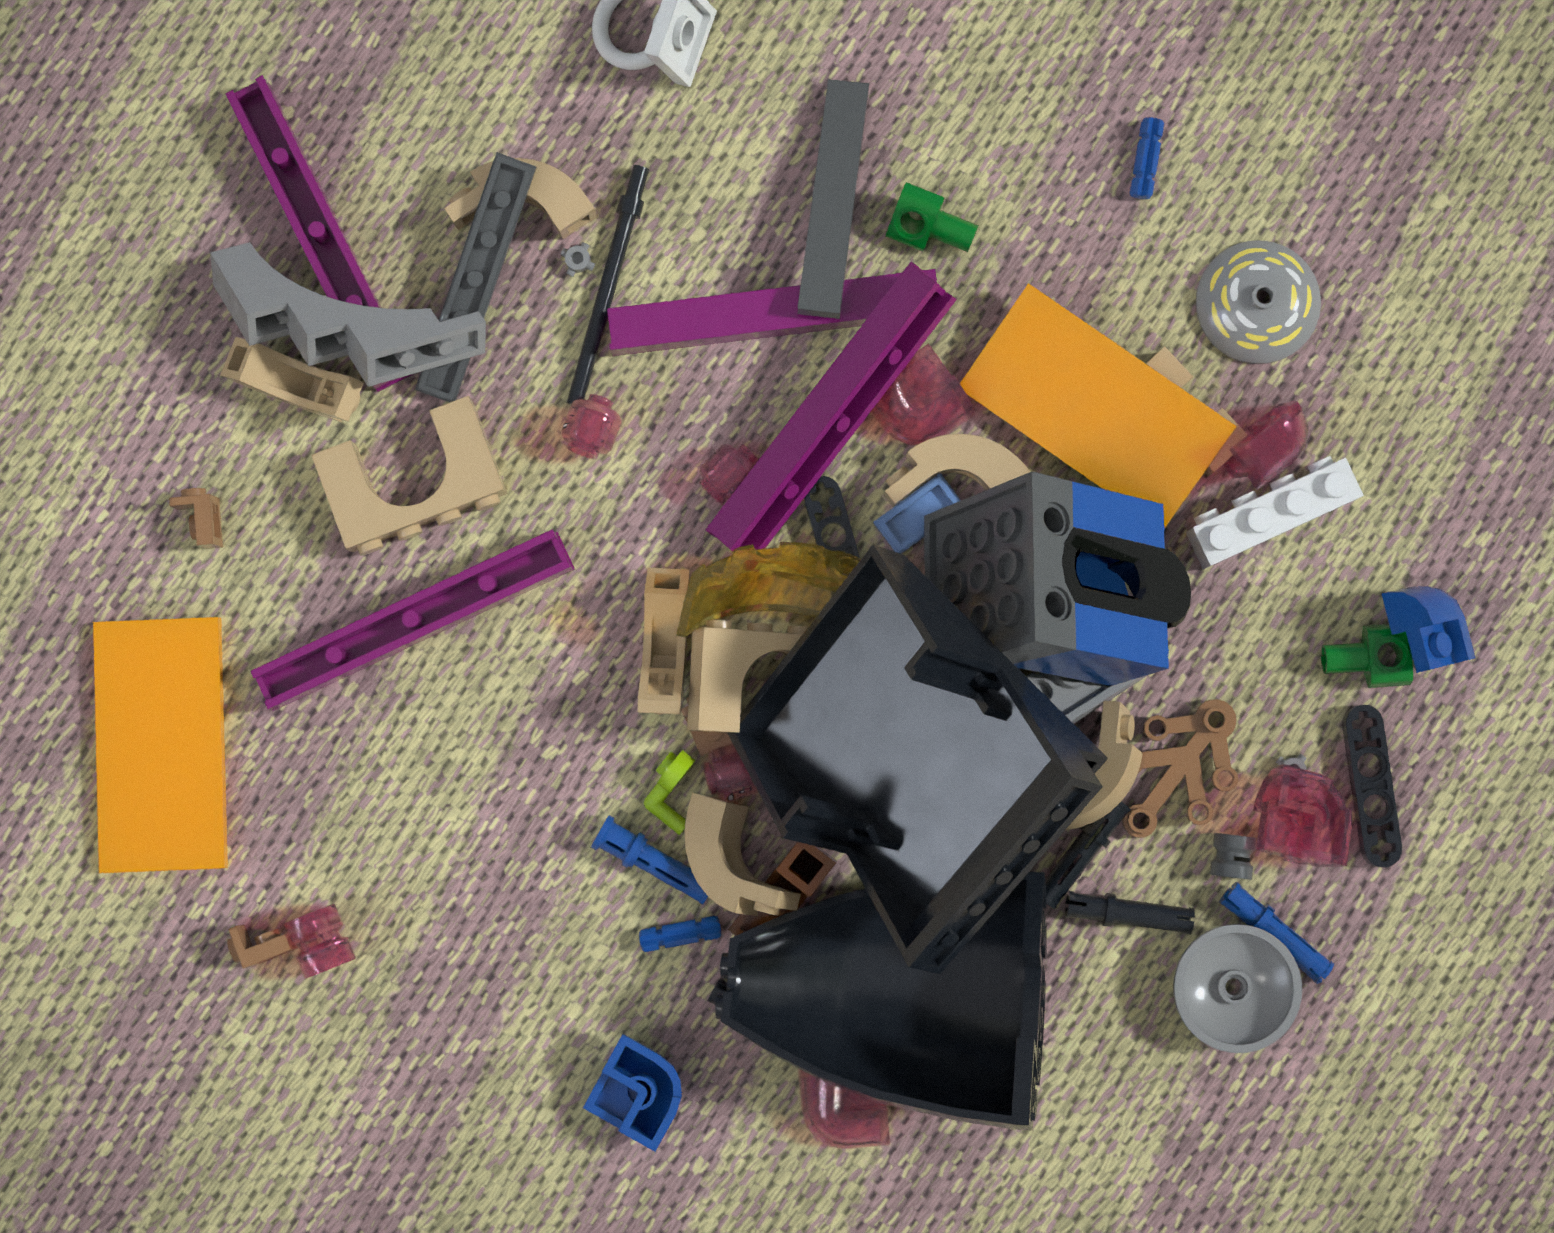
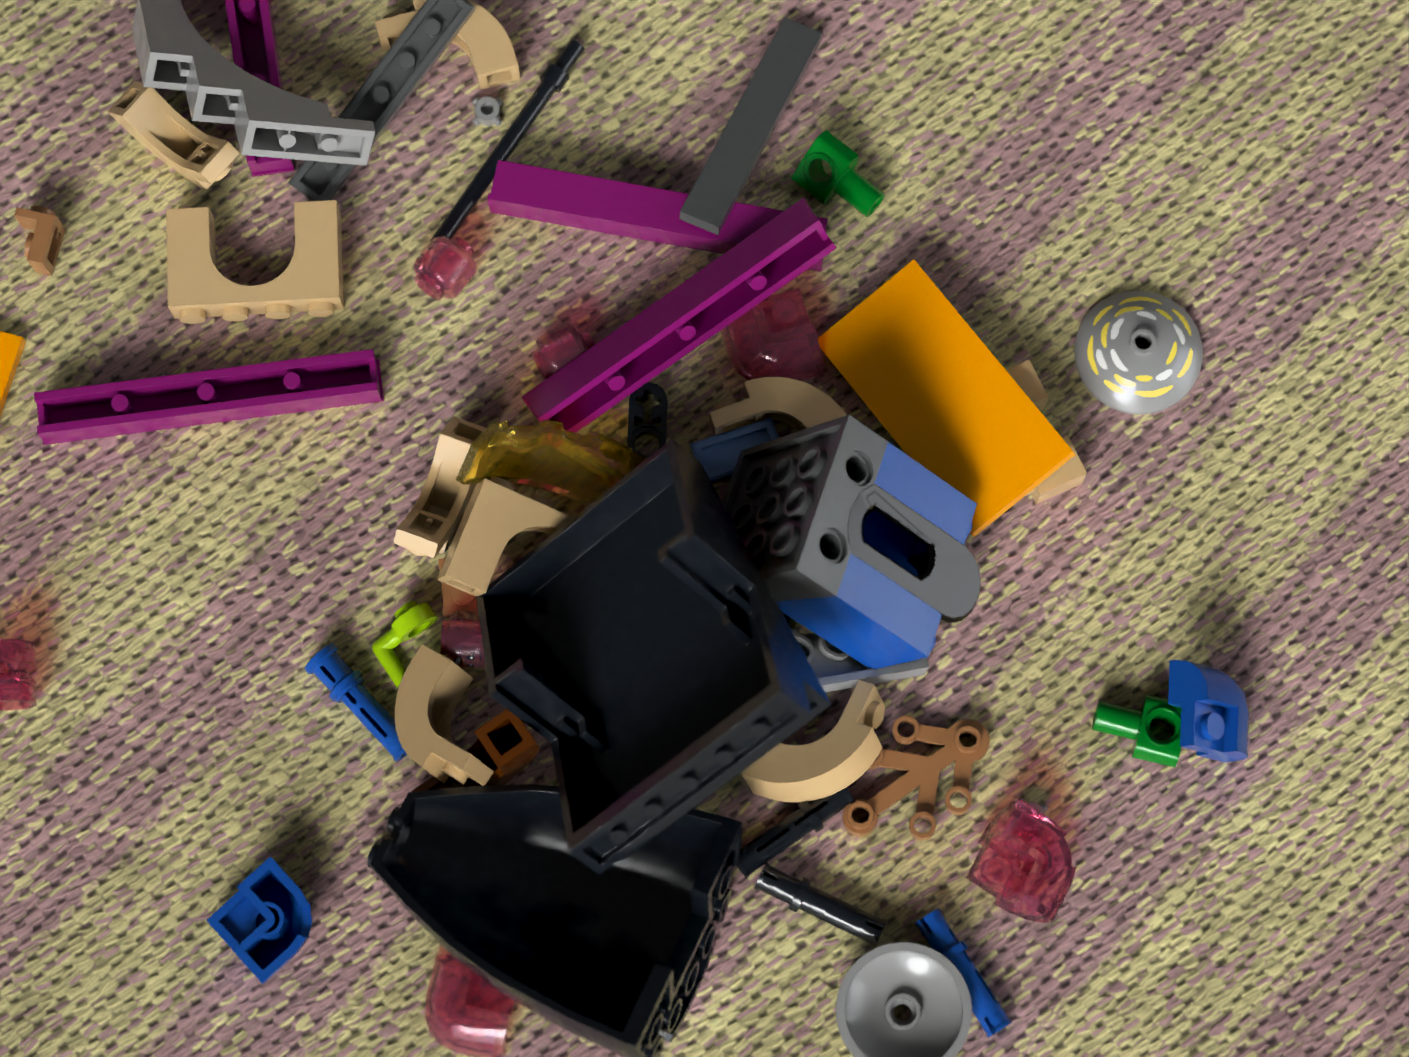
camera: 15 degrees right, 10 degrees down
(680, 933) = (364, 783): blue axle -> none
(1147, 158) = (1070, 183): blue axle -> none
(1233, 856) = (942, 880): dark grey wheel -> none
(1267, 516) = (1088, 555): white brick -> none
(1271, 445) = (1102, 485): clear pink brick -> none
(1379, 784) = (1111, 857): black beam -> none

